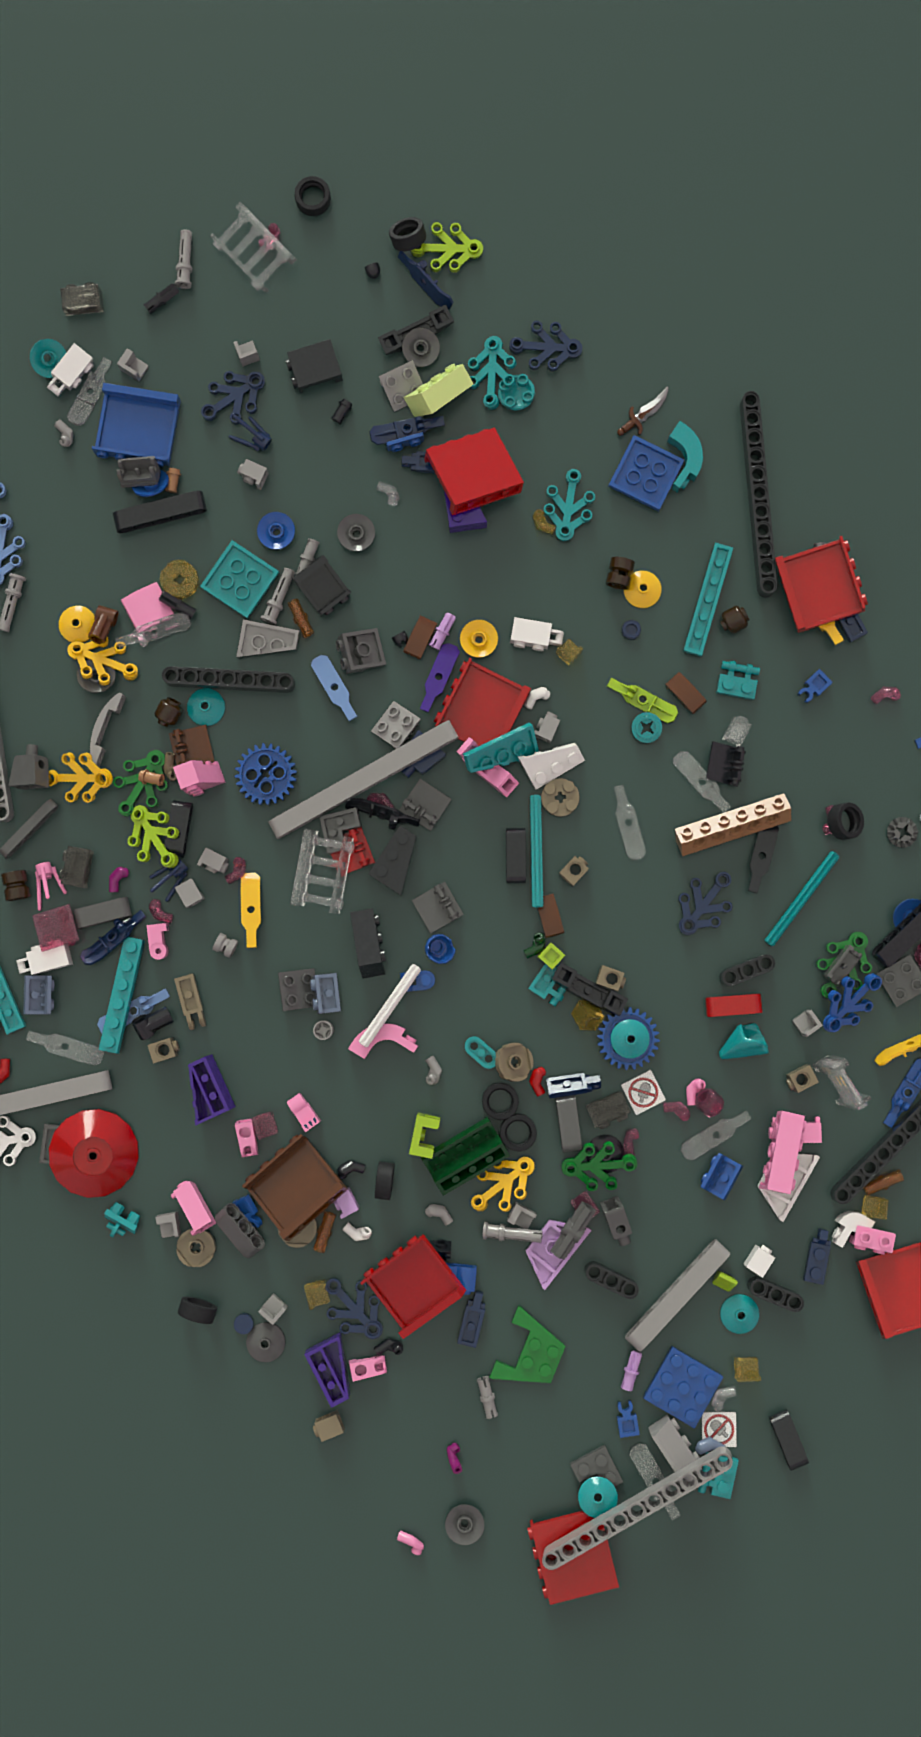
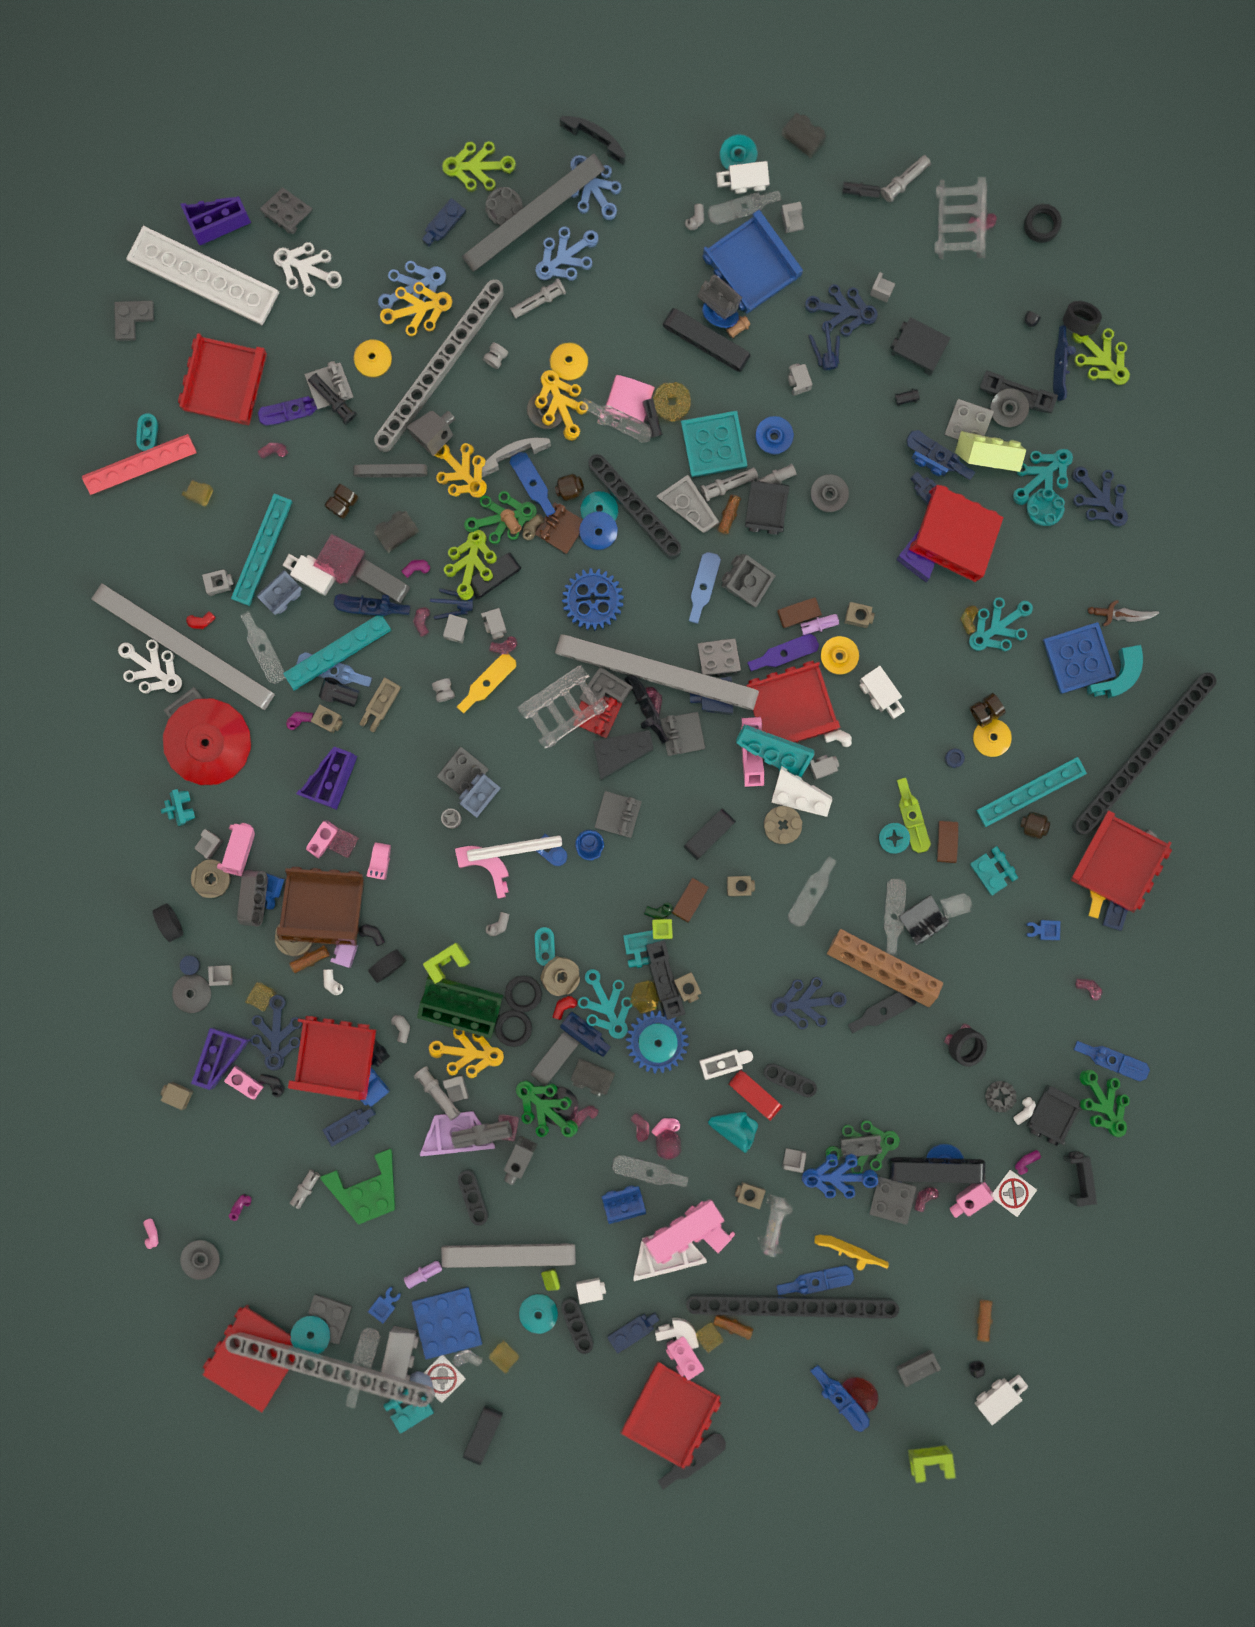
camera: 45 degrees right, 0 degrees up
(20, 672) = (495, 355): none -> light grey wheel
(44, 872) = (370, 512): bright pink plant -> none
(104, 620) = (590, 377): reddish brown piece -> none
(129, 733) = (527, 474): none -> blue piece
(141, 1071) = (297, 718): none -> magenta arm
(156, 940) = (399, 638): bright pink leg -> none
(196, 777) = (542, 553): bright pink wedge -> none
(210, 722) = (591, 523): none -> blue dish
(368, 942) = (543, 789): black wedge -> none
(390, 491) = (883, 490): clear arm -> none
(399, 637) = (784, 598): black hinge -> none
(461, 605) = (851, 618): none -> dark tan brick
(536, 851) = (727, 845): teal axle -> none
(568, 1049) = (607, 1006): none -> teal plant
(569, 652) = (894, 729): clear yellow panel -> none
(643, 1092) = (629, 1090): clear sticker -> none
(690, 1005) = (724, 1063): none -> white brick
(802, 898) = (879, 1070): teal axle -> none

